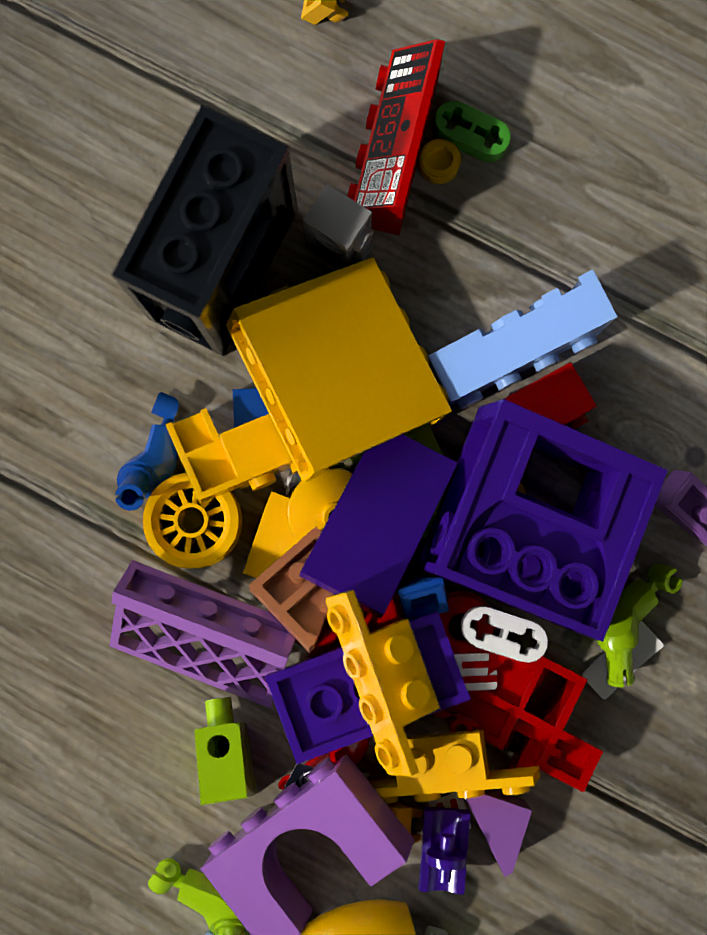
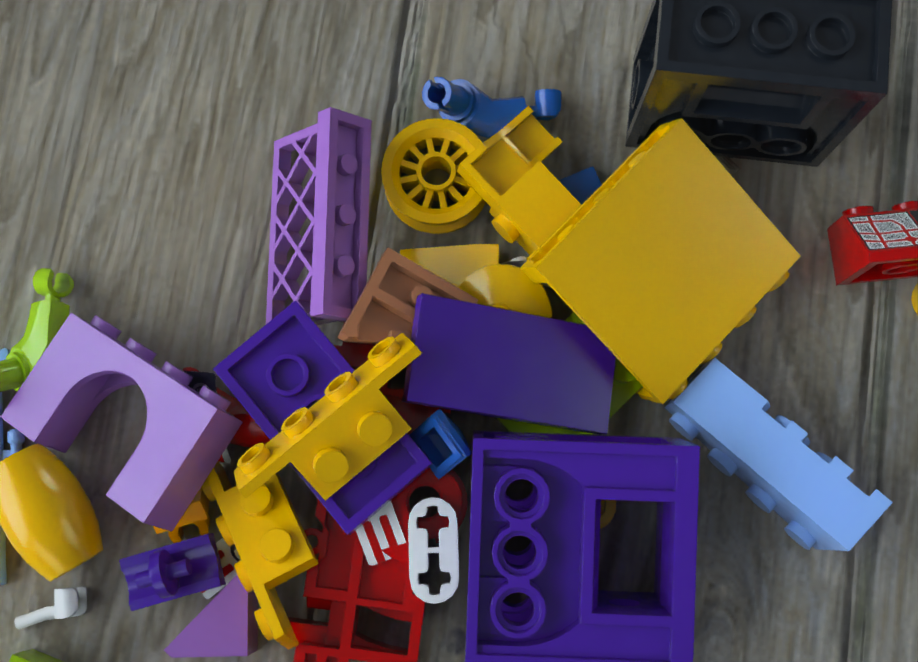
camera: 75 degrees right, 5 degrees down
(222, 776) = (179, 297): lime torso -> none
(338, 228) = (817, 206): light grey brick -> none
(557, 397) = (726, 523): red slope -> none

